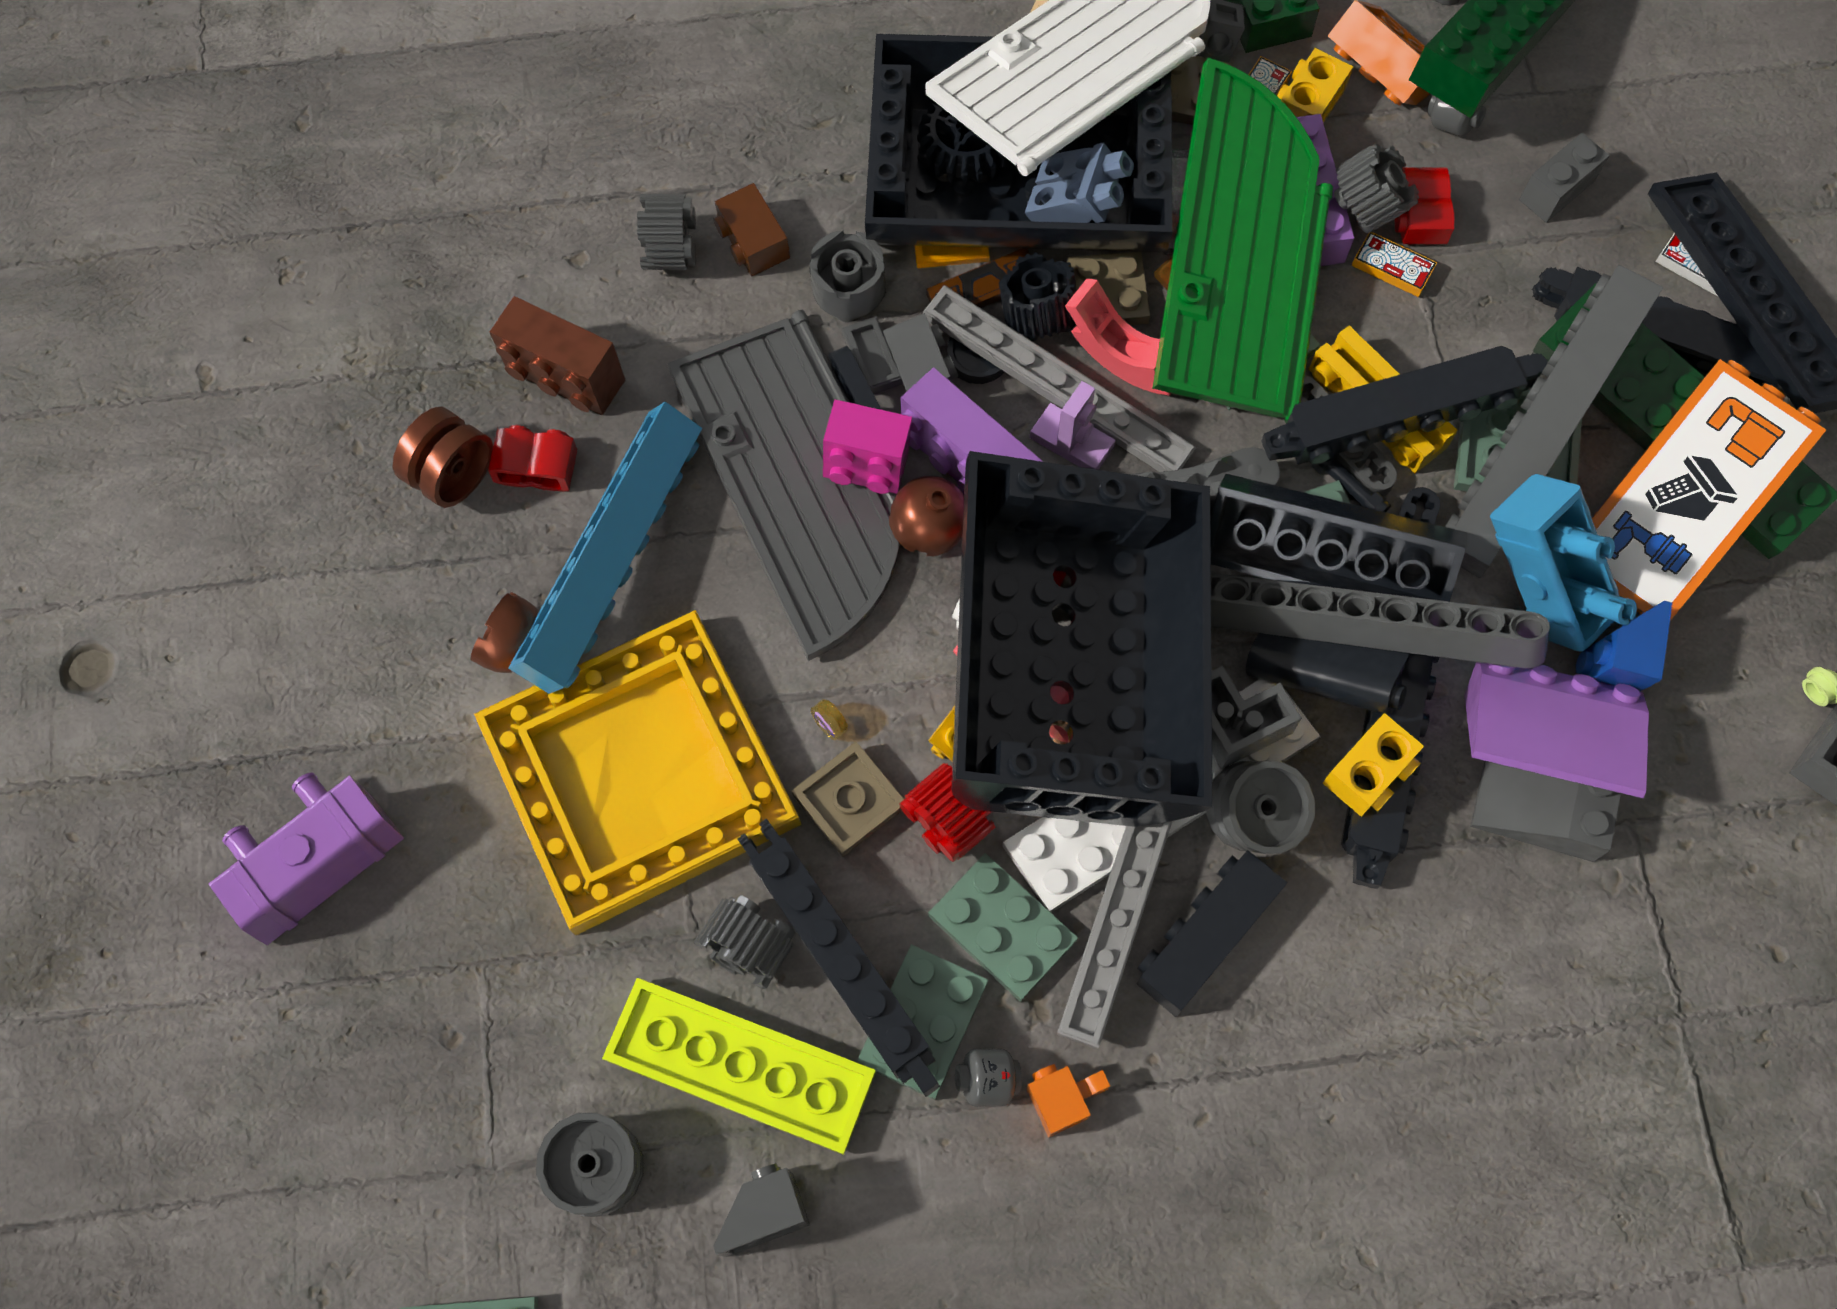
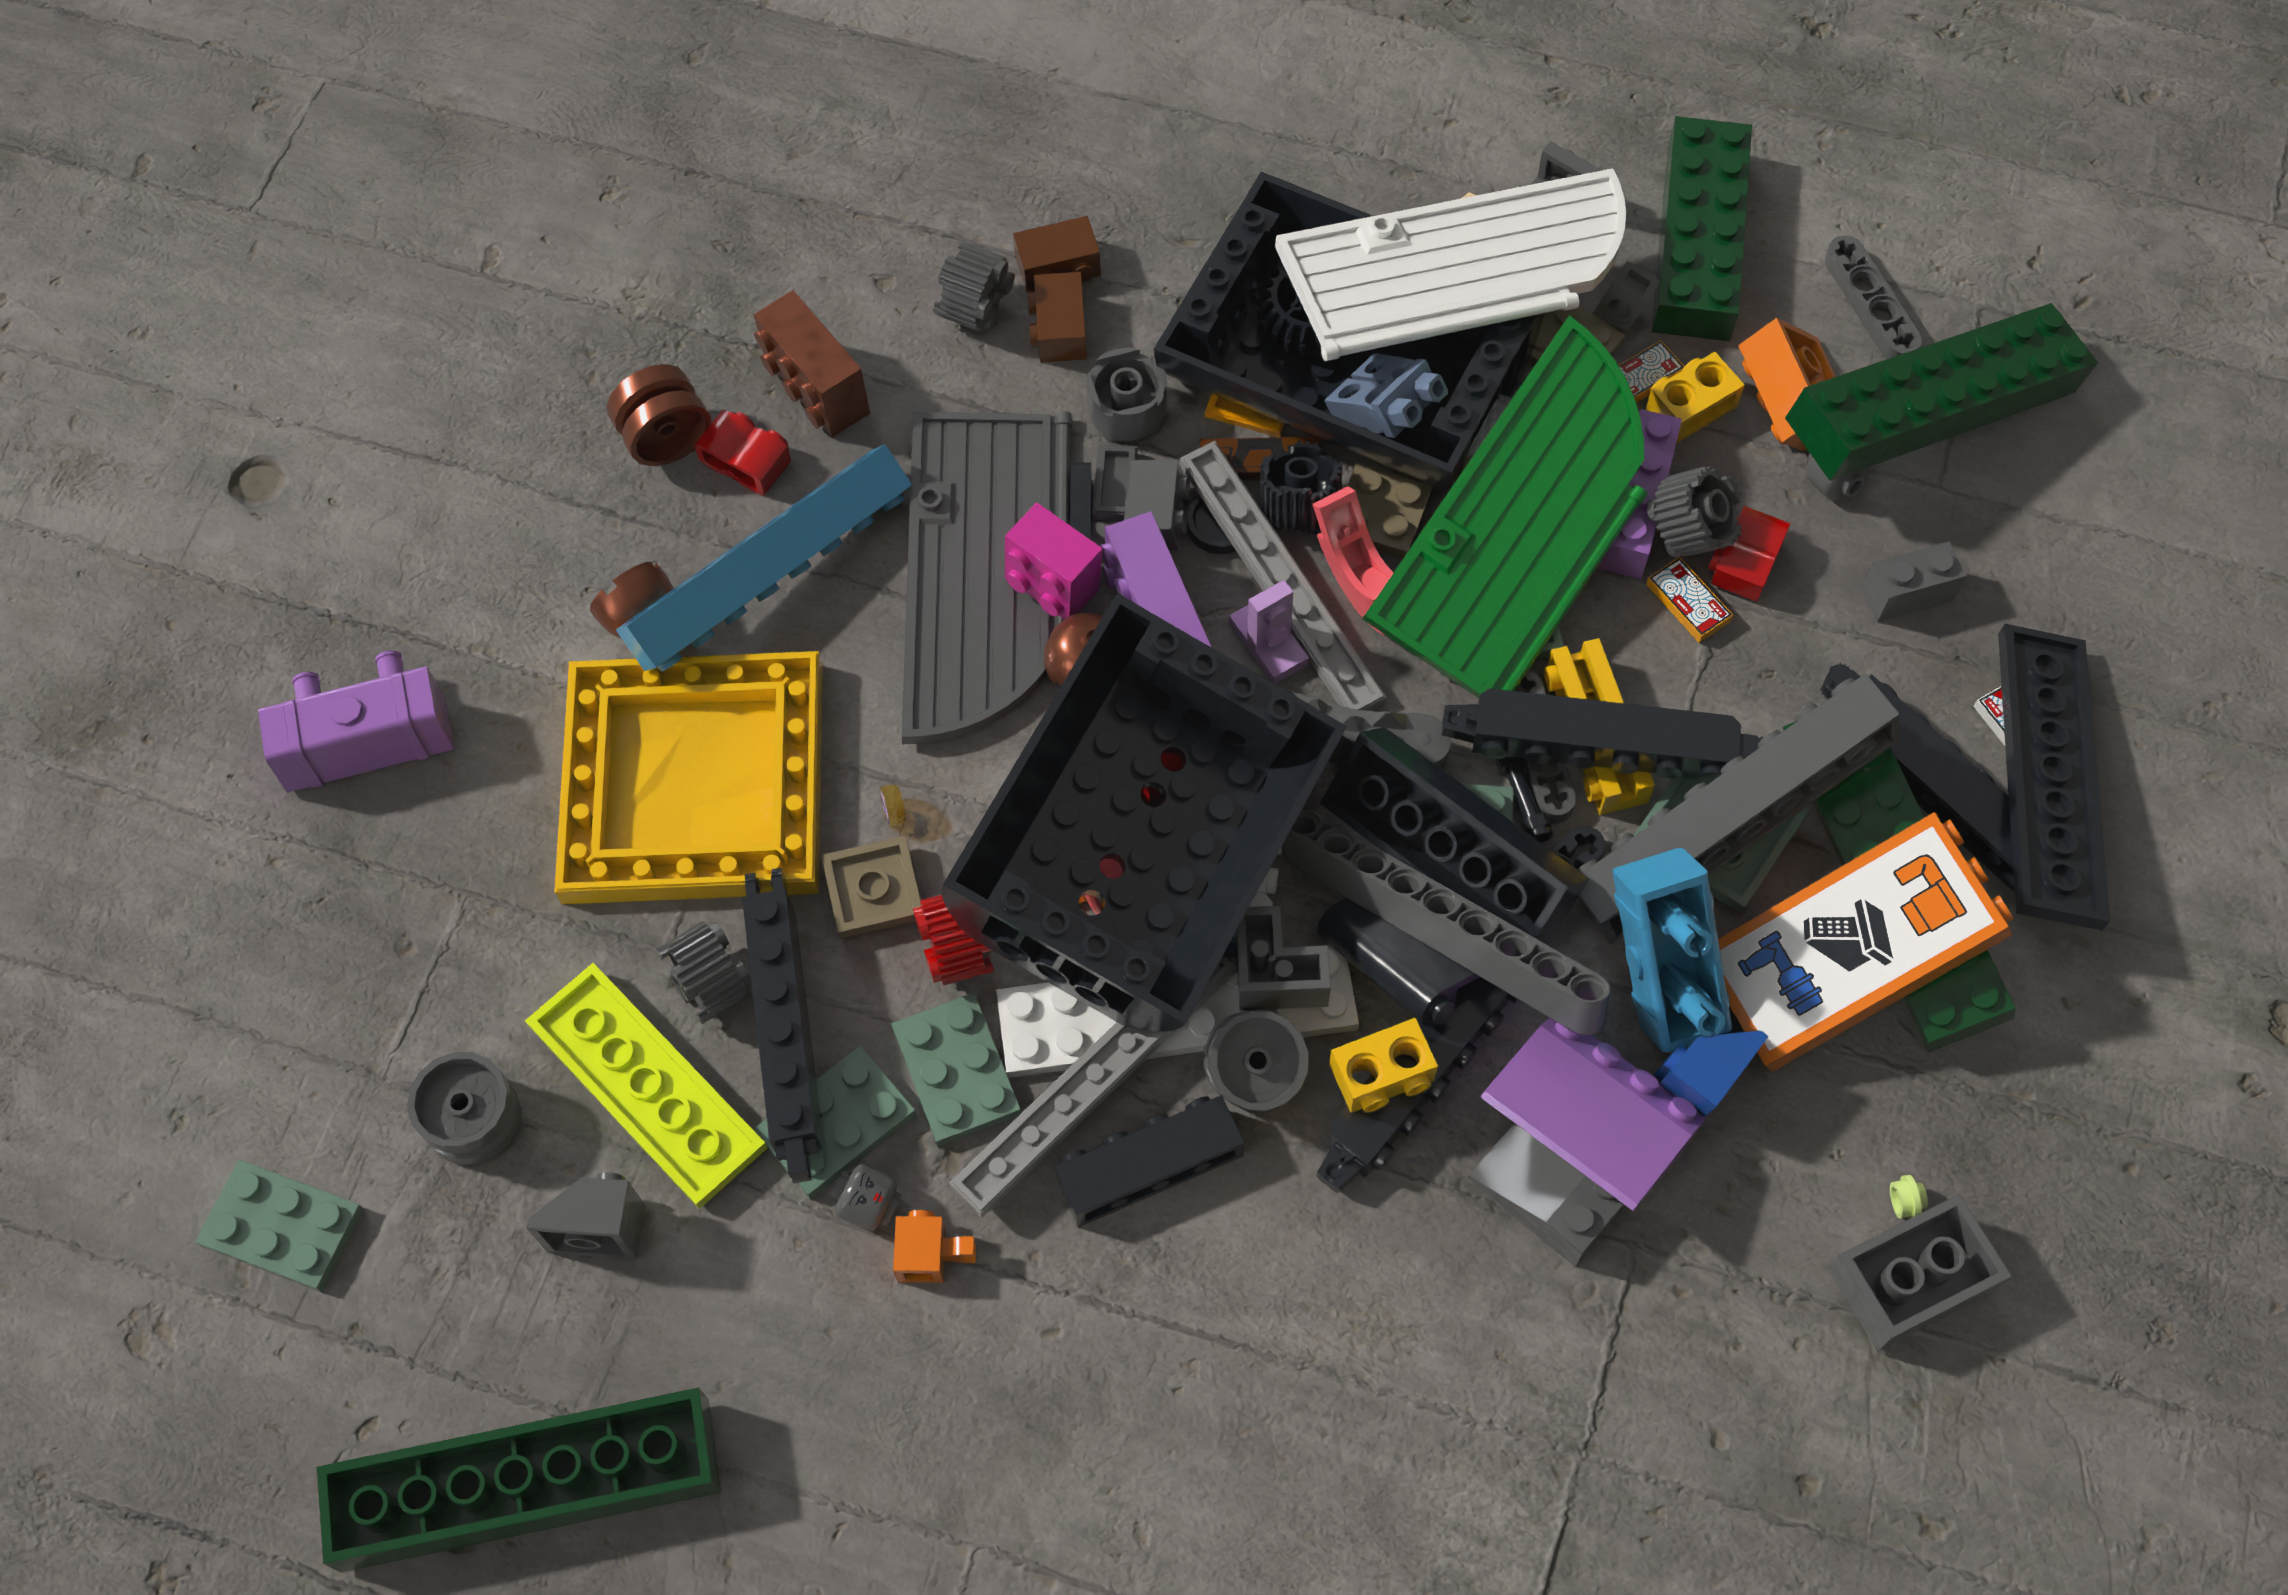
camera: 25 degrees right, 5 degrees down
(720, 172) = (1057, 249): none -> reddish brown brick

